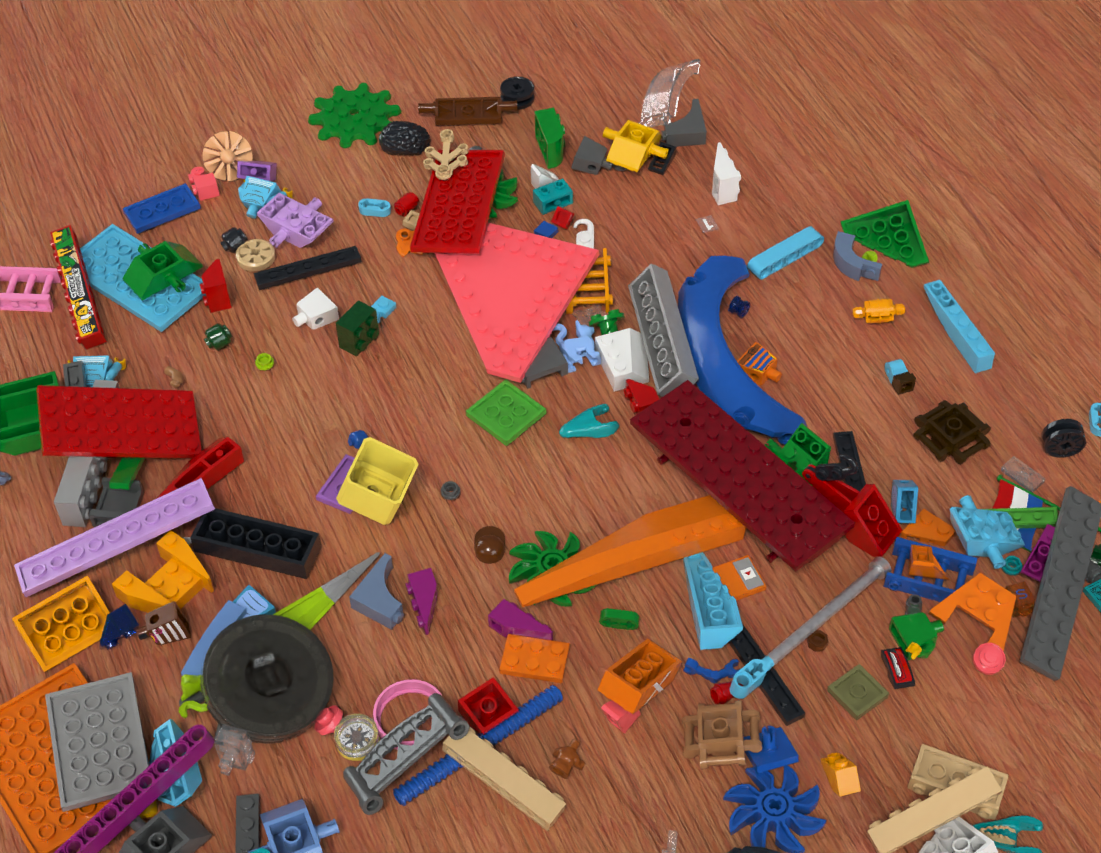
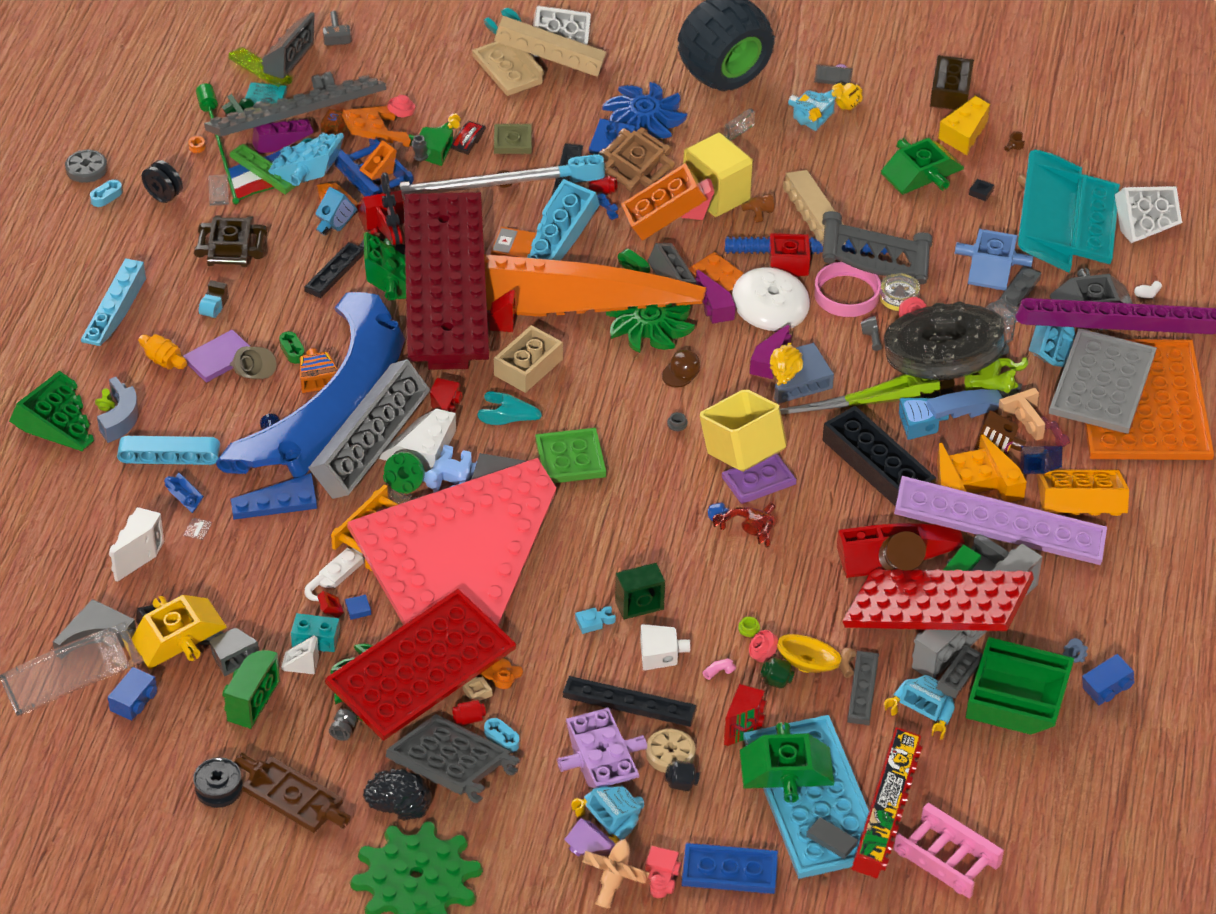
camera: 145 degrees left, 5 degrees down
(102, 249) = (832, 838): none -> dark grey tile
(138, 674) = (1061, 439): none -> clear pink arm
(150, 365) = (863, 688): none -> dark grey tile
(166, 678) = (1022, 405): none -> light nougat bracket
(174, 453) = (902, 551): none -> reddish brown hat
(192, 346) = (808, 653): none -> yellow dish
(240, 348) = (763, 646): none -> coral plate
(264, 324) = (717, 666): none -> bright pink arm
(319, 440) = (757, 521): none -> clear red piece
(356, 683) = (870, 328): none -> dark grey bar
(388, 165) = (451, 756): none -> dark grey plate
(392, 571) = (785, 363): none -> yellow hair
(445, 170) = (389, 710): tan plant -> none
(461, 672) = (771, 298): none -> white brick
(575, 621) = (668, 263): none -> dark grey brick
(611, 463) = (528, 358): none -> tan brick
(621, 107) = (132, 693): none -> brick
(621, 743) = (726, 167): none -> light yellow plate
(671, 491) = (502, 313): none -> red slope
(682, 262) = (284, 497): none -> blue wing
(747, 231) = (184, 491): none -> blue hinge
(800, 378) = (289, 348): none -> green beam
(808, 340) = (254, 362): none -> dark tan piece
(841, 774) = (579, 105): light orange slope -> none
(842, 341) = (215, 356): none -> medium lavender tile
(1085, 644) = (322, 81): none -> dark grey wheel

